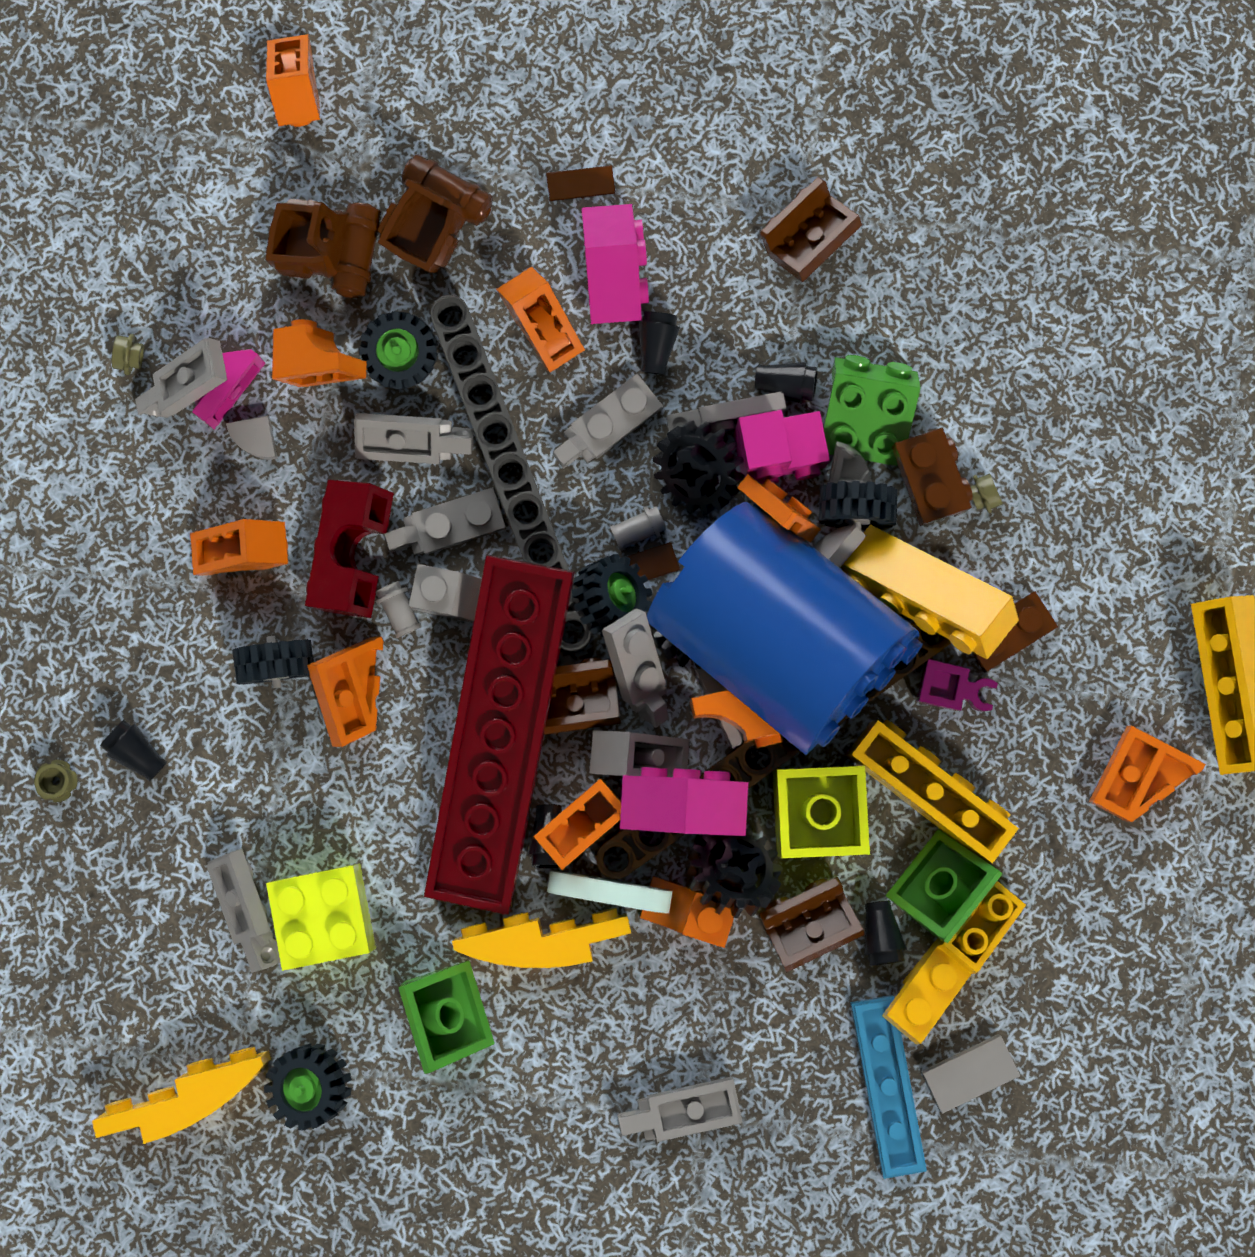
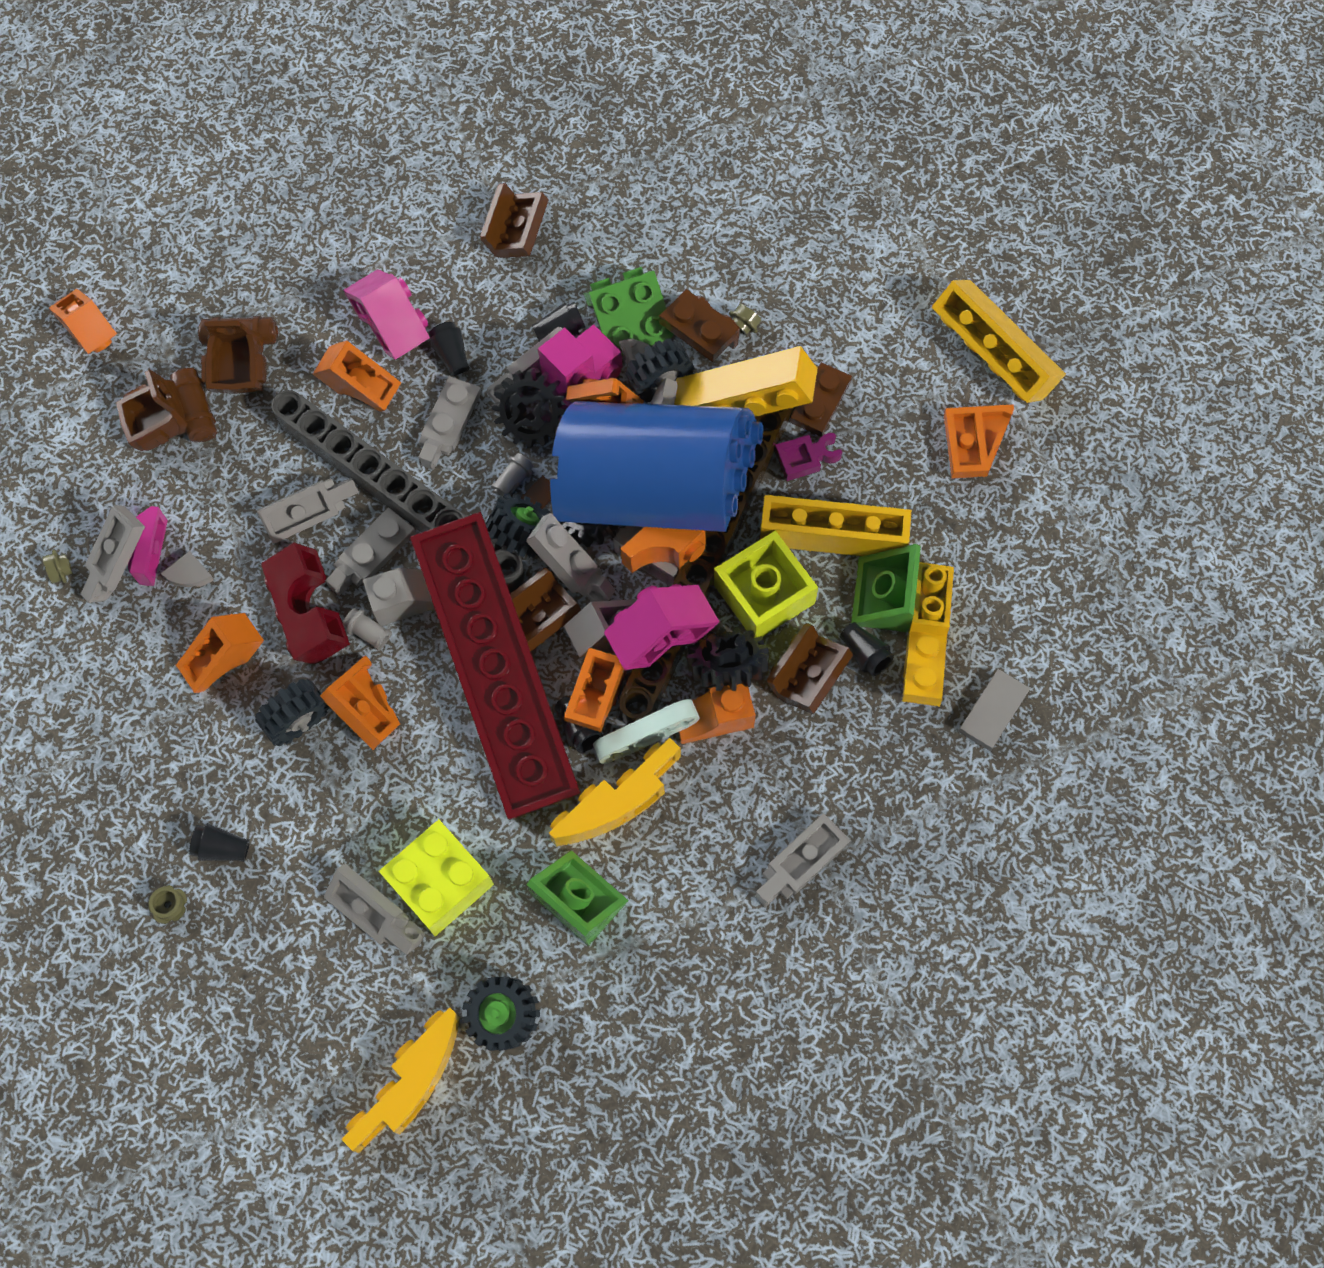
camera: 25 degrees left, 15 degrees down
(310, 358) = (200, 492): orange arch -> none
(398, 350) = (263, 452): black wheel -> none
(580, 183) = (333, 281): reddish brown window -> none
(888, 1089) = (942, 756): dark azure tile -> none

